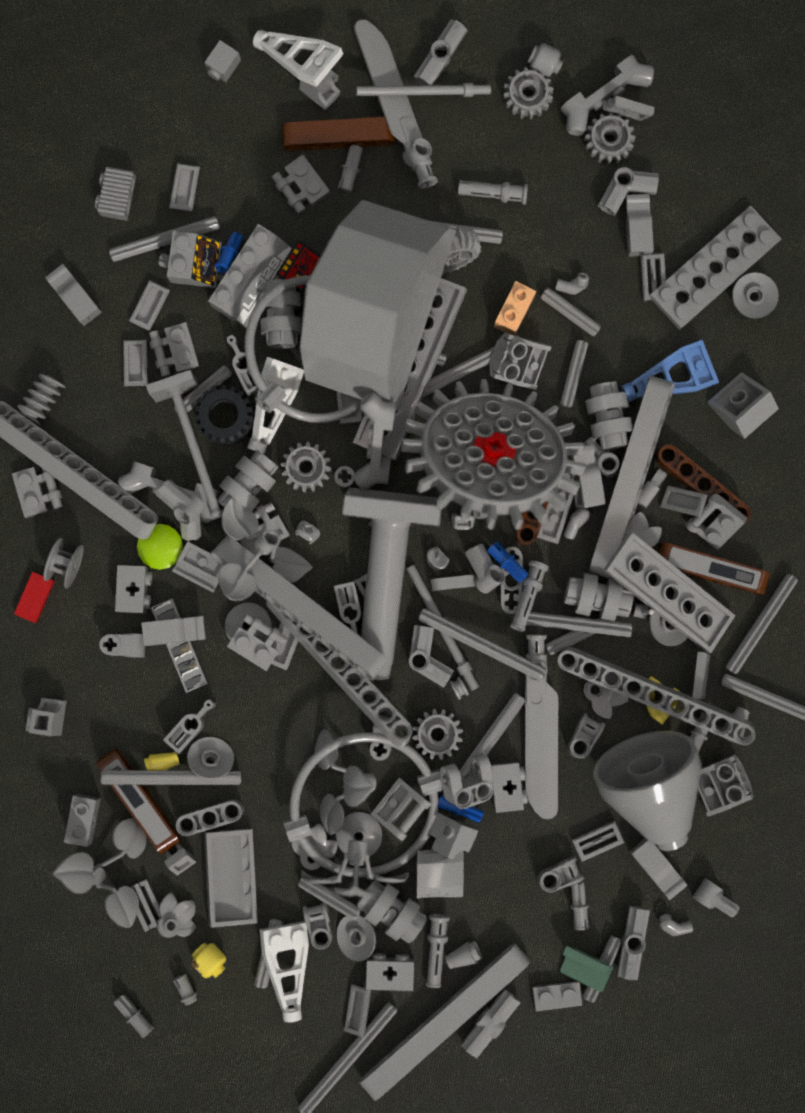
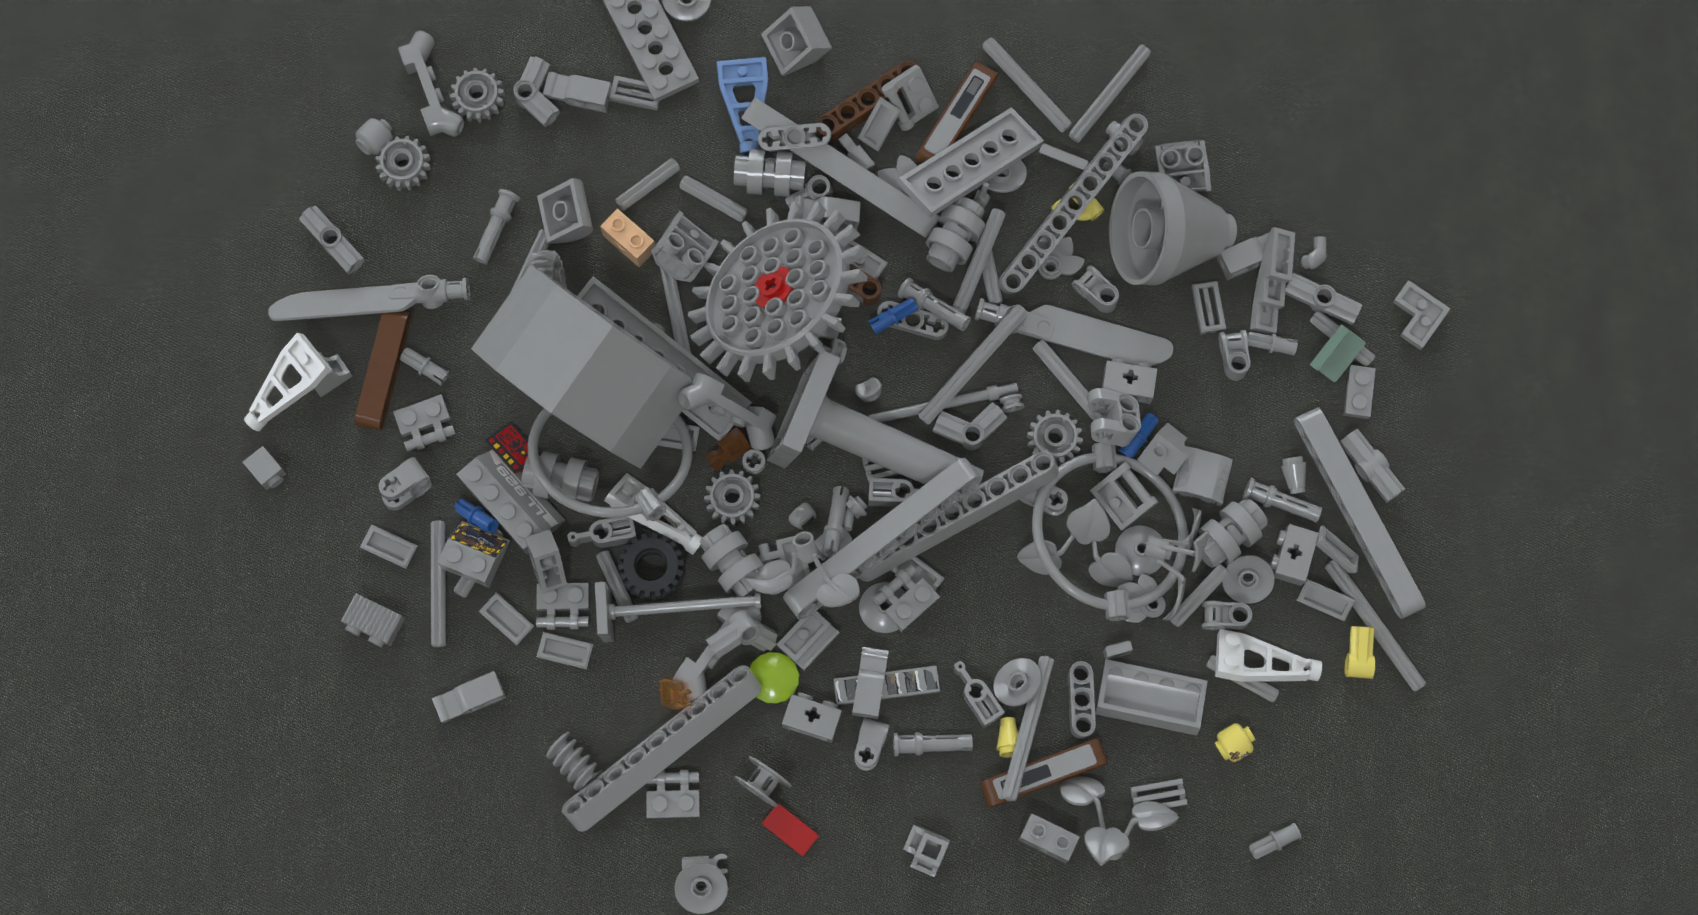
camera: 75 degrees left, 10 degrees down
(119, 466) = (673, 694): none -> clear orange plate
(135, 686) = (918, 743): none -> light grey pin
(178, 914) = (1179, 765): light grey plate -> none
(179, 861) = (1120, 745): light grey tile -> none
(185, 989) = (1260, 777): light grey pin -> none
(202, 323) = (546, 561): none -> light grey brick
(242, 186) = (411, 483): none -> light grey piece
(262, 838) = (1117, 650): none -> light grey tile
(297, 563) = (834, 530): none -> light grey pin
(313, 1053) = (1359, 661): none -> light yellow piece
(327, 575) = (855, 508): none -> light grey plate
(349, 452) = (730, 448): none -> reddish brown plate
(403, 1010) = (1337, 550): none -> light grey tile
(452, 582) = (898, 380): light grey beam -> none
(465, 90) = (378, 225): light grey bar -> none
(488, 574) = (900, 341): light grey piece -> none
(521, 247) = (565, 212): none -> light grey brick
(574, 286) = (621, 174): light grey arm -> none
(576, 520) = (869, 236): light grey arm -> none
(628, 108) = (453, 66): light grey tile -> none
(643, 893) = (1272, 279): none -> light grey slope
(644, 410) = (776, 145): none -> light grey beam
(647, 1040) = (1426, 314): none -> light grey plate
(712, 896) = (1294, 209): light grey axle -> none

